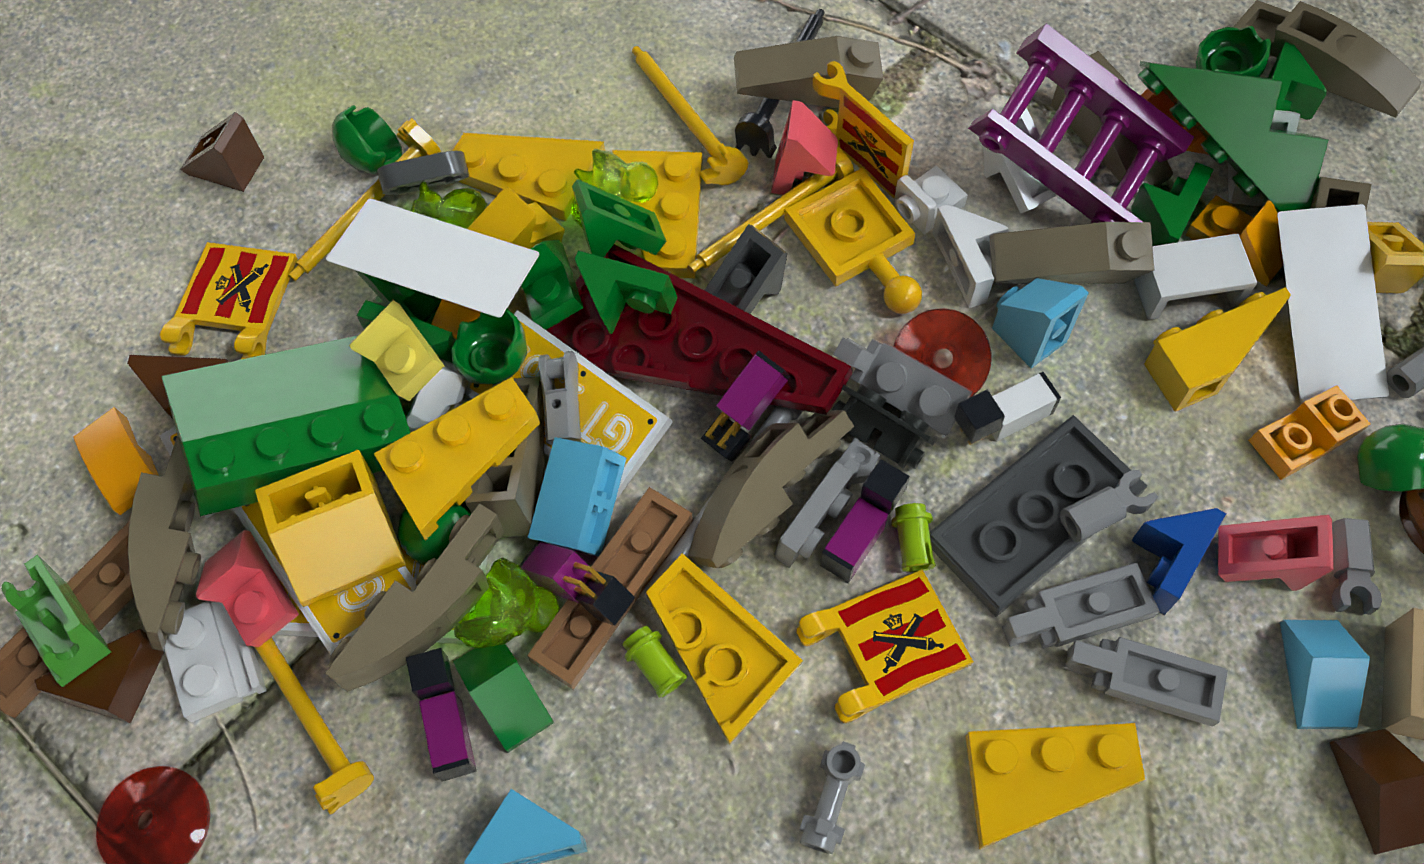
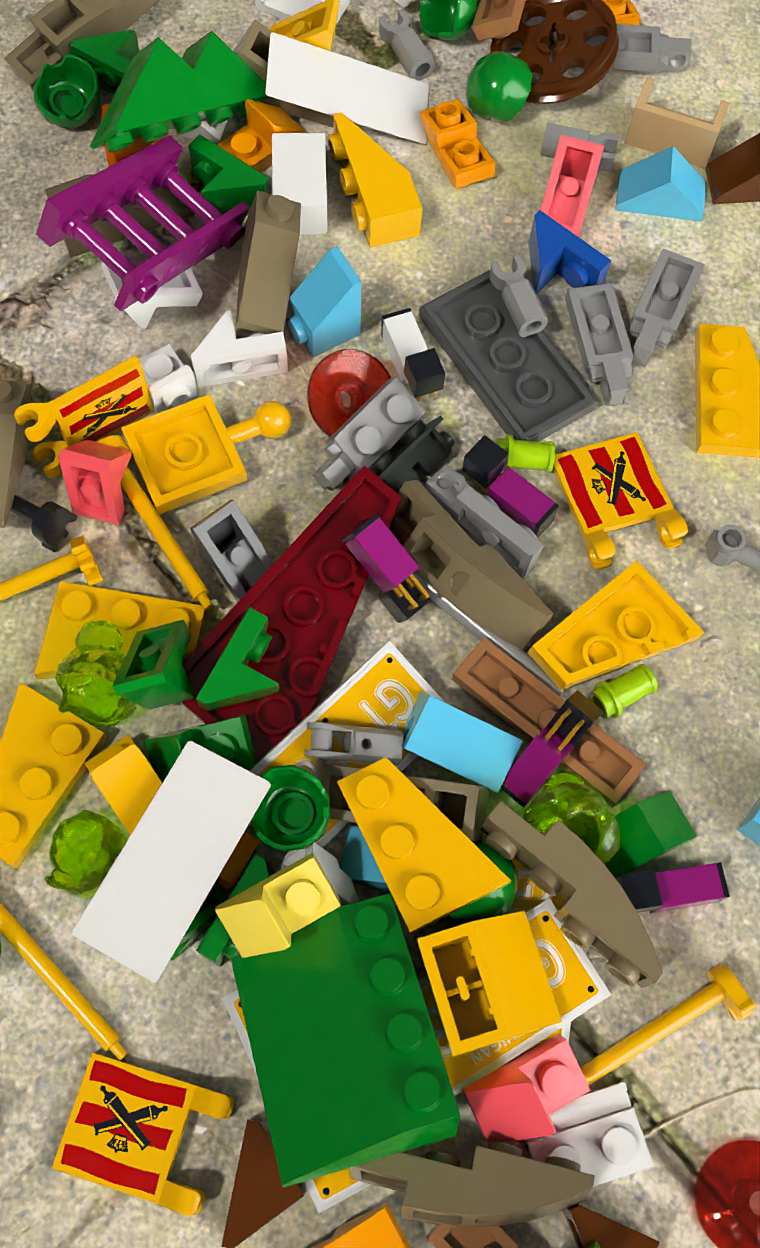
camera: 90 degrees left, 5 degrees up
(433, 169) = (27, 882): dark grey beam -> none

